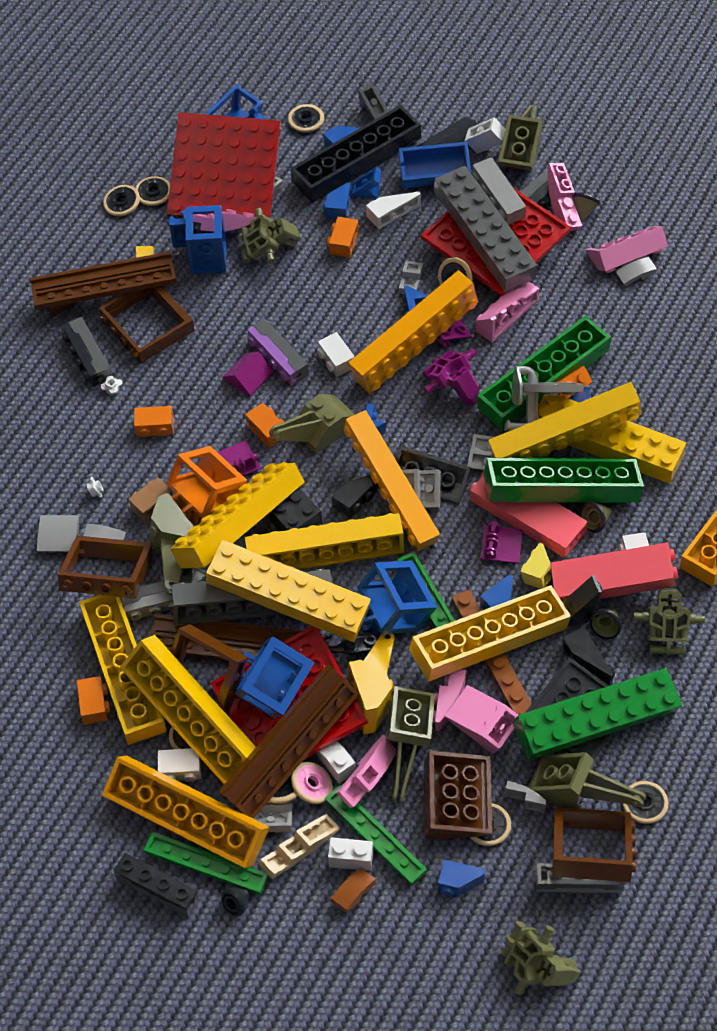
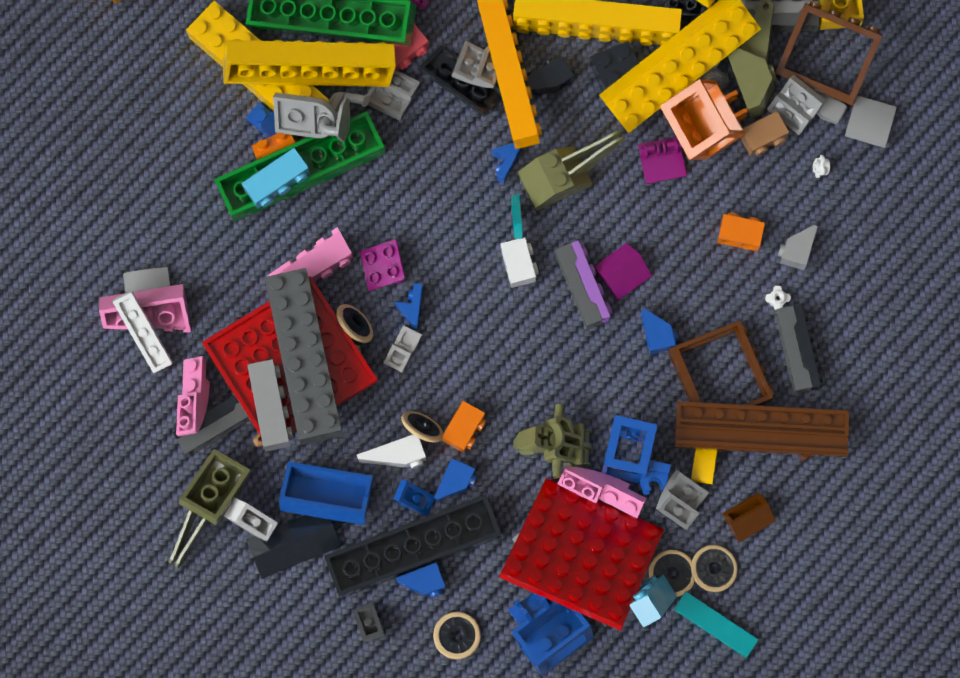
camera: 165 degrees left, 20 degrees up
(102, 236) = (749, 517): none -> reddish brown brick
(102, 422) = (797, 248): none -> light grey slope
(112, 169) = (715, 624): none -> teal tile
(126, 527) = (796, 104): none -> light grey slope
(156, 229) = (681, 499): none -> light grey slope
(161, 153) = (653, 600): none -> medium azure brick
(205, 334) = (657, 333): none -> blue slope
(260, 421) = (619, 192): orange brick -> none
(347, 379) = (516, 216): none -> teal tile
(385, 220) = (422, 426): none -> wheel
(414, 332) = (427, 242): light orange brick -> none
(454, 371) = (402, 190): magenta piece -> none
(558, 342) = (276, 178): none -> medium azure brick
(584, 204) = (168, 389): olive hat -> none
(622, 225) = (142, 331): none -> white plate

